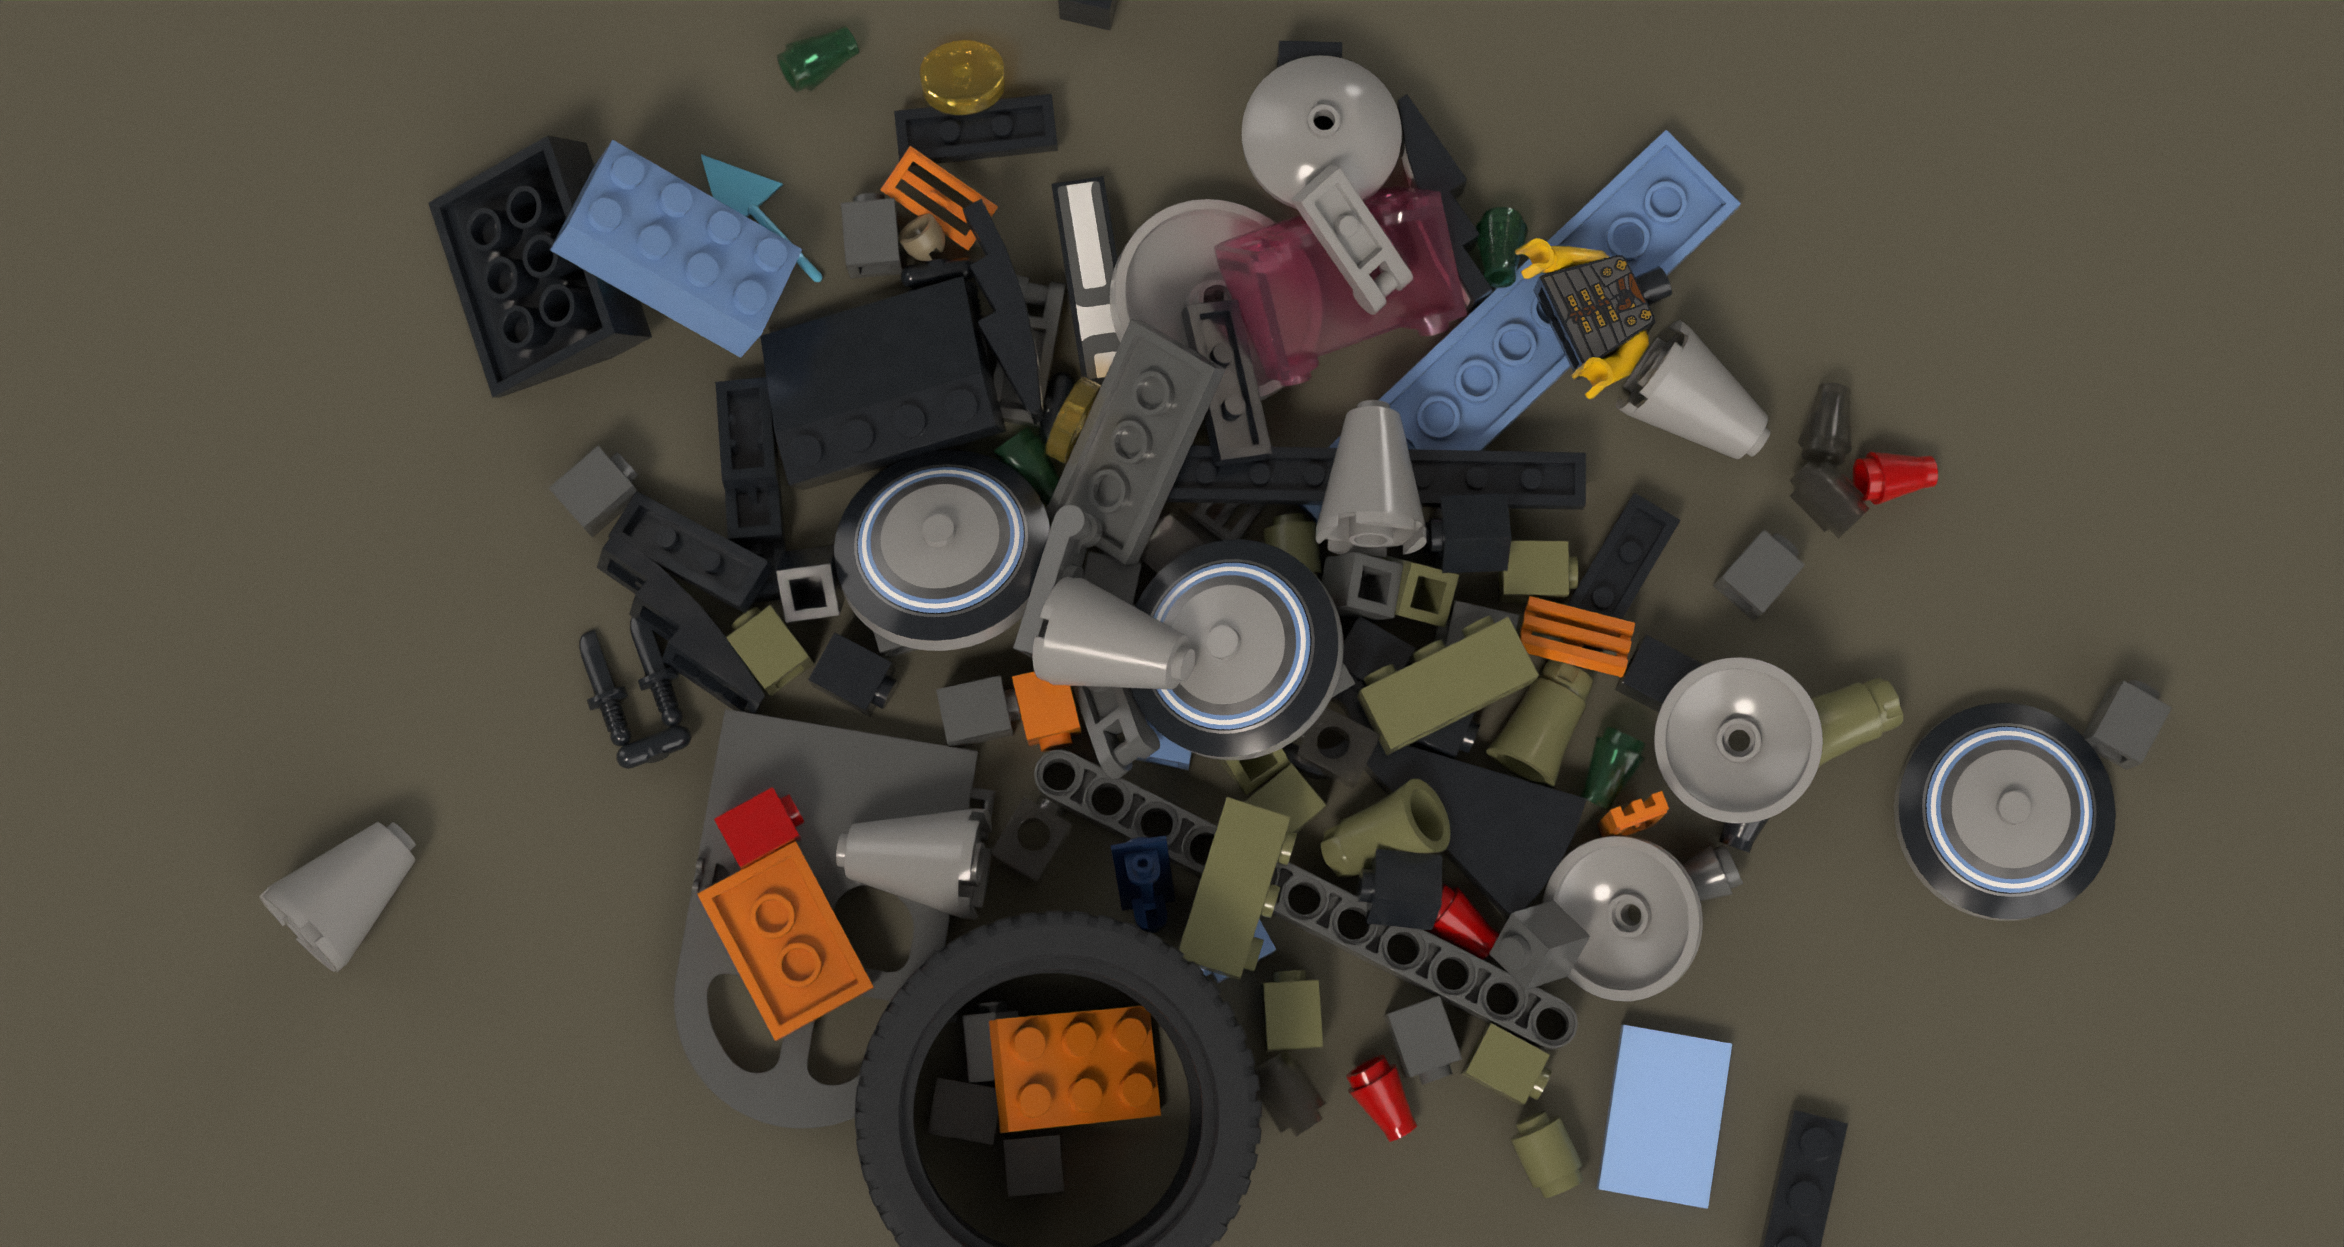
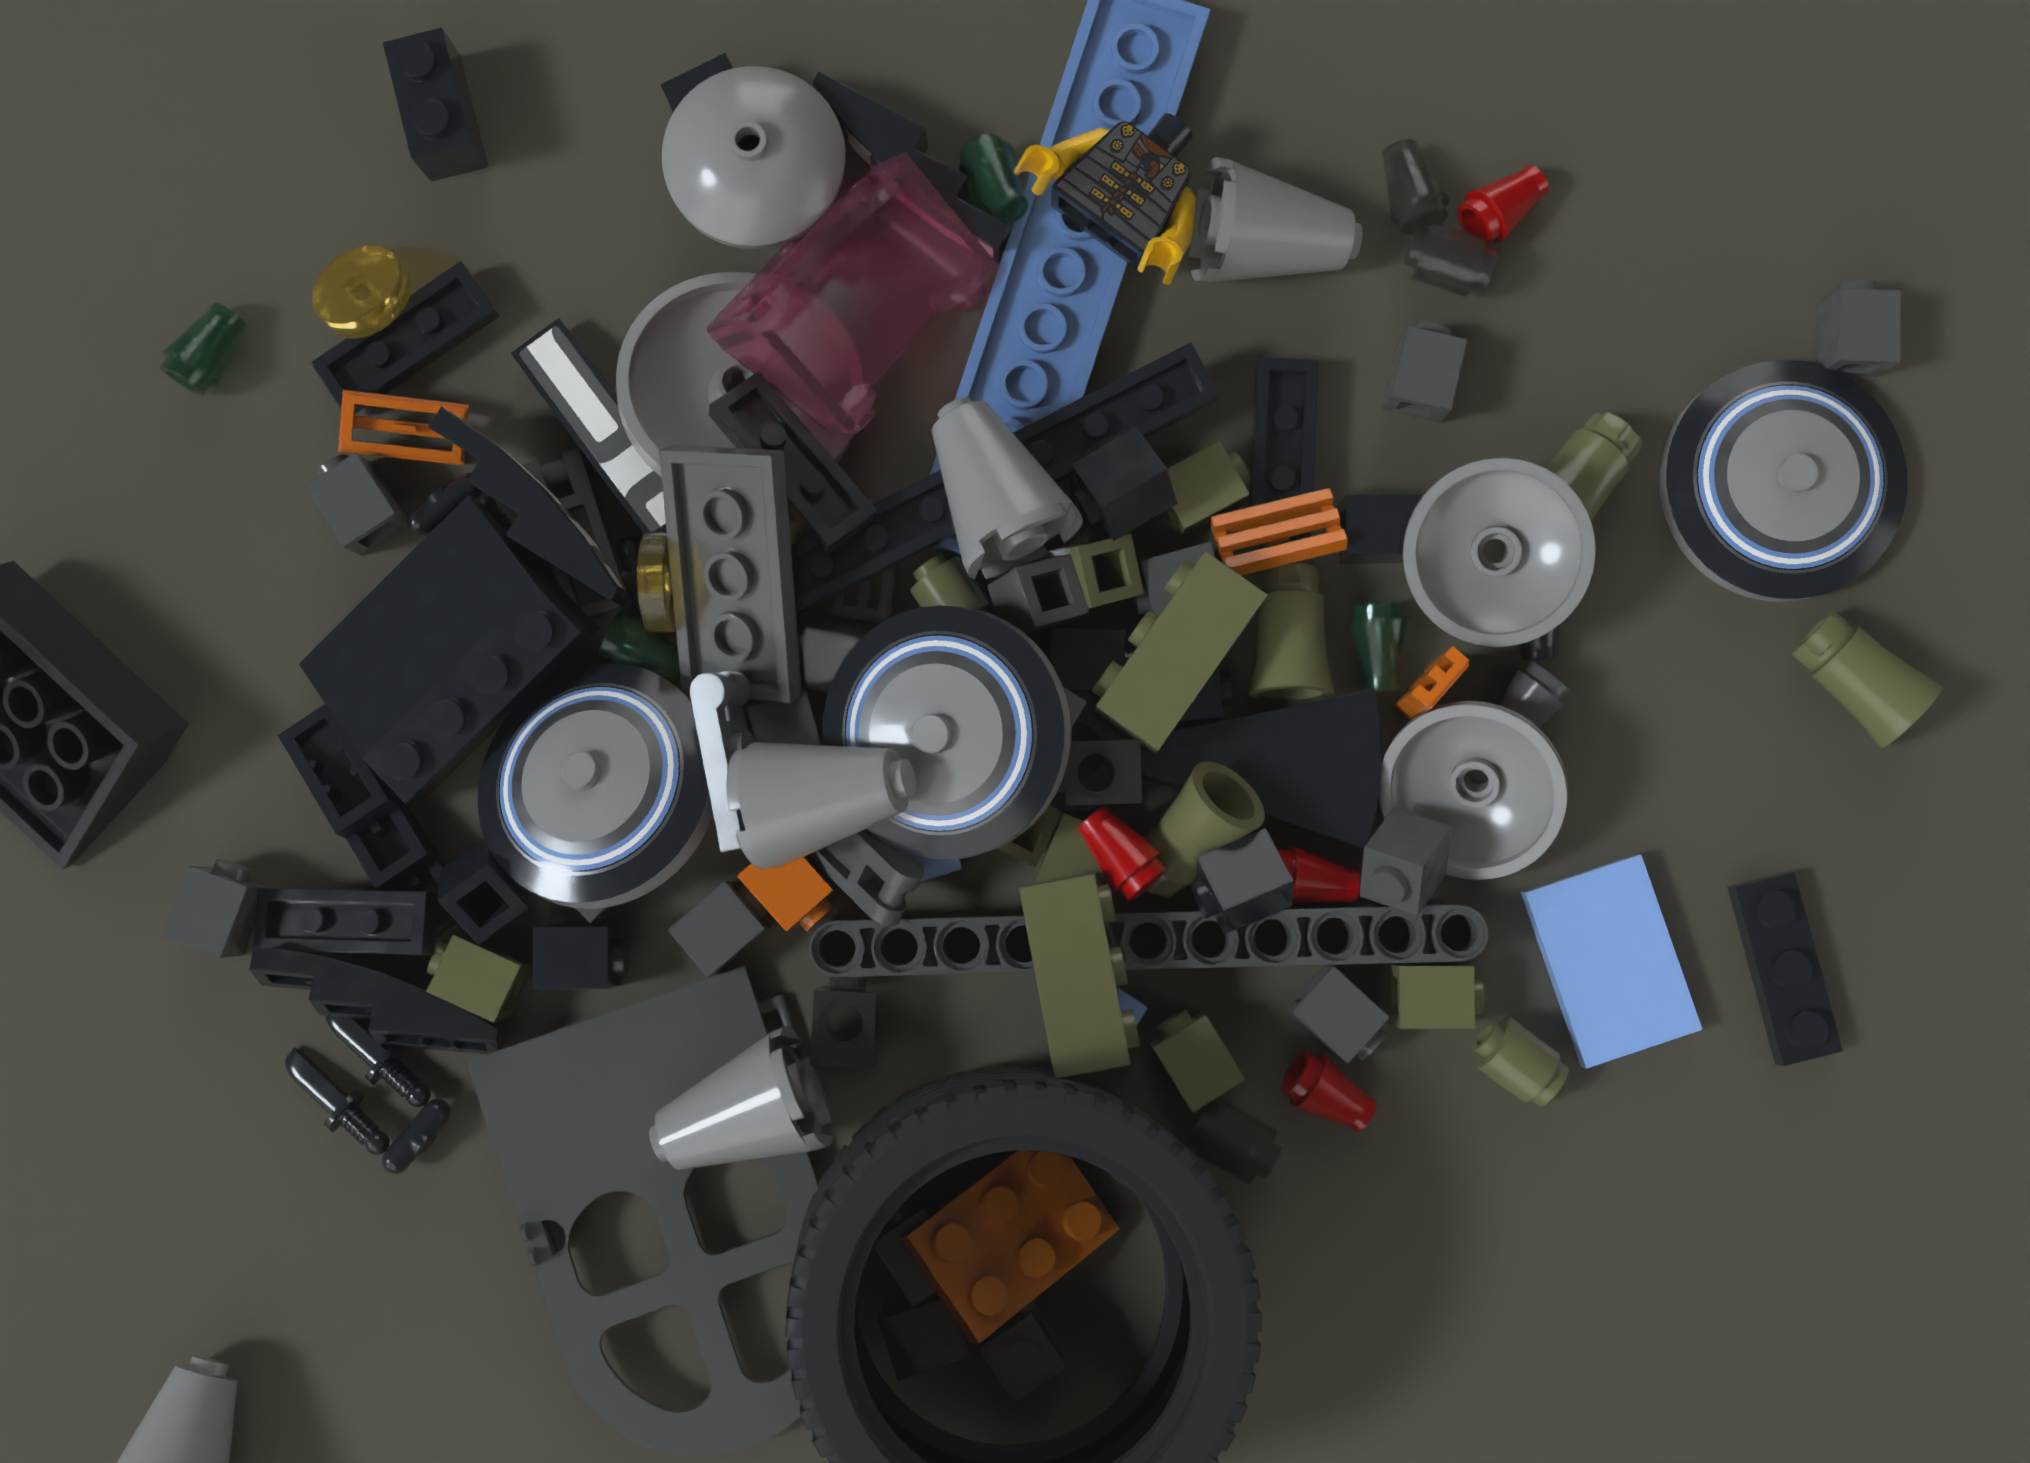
camera: 25 degrees left, 5 degrees up
(676, 249) = (152, 623): medium blue brick -> none
(745, 193) = (204, 529): medium azure piece -> none
(760, 826) = (564, 1167): red brick -> none
(785, 941) = (652, 1265): orange plate -> none
(922, 237) = (407, 477): dark tan hinge -> none
(1144, 880) = (979, 1008): dark blue hinge -> none
(1319, 817) = (1121, 854): none -> red cone
(1352, 238) = (840, 246): light grey plate -> none
(1985, 998) = (1866, 678): none -> olive plant

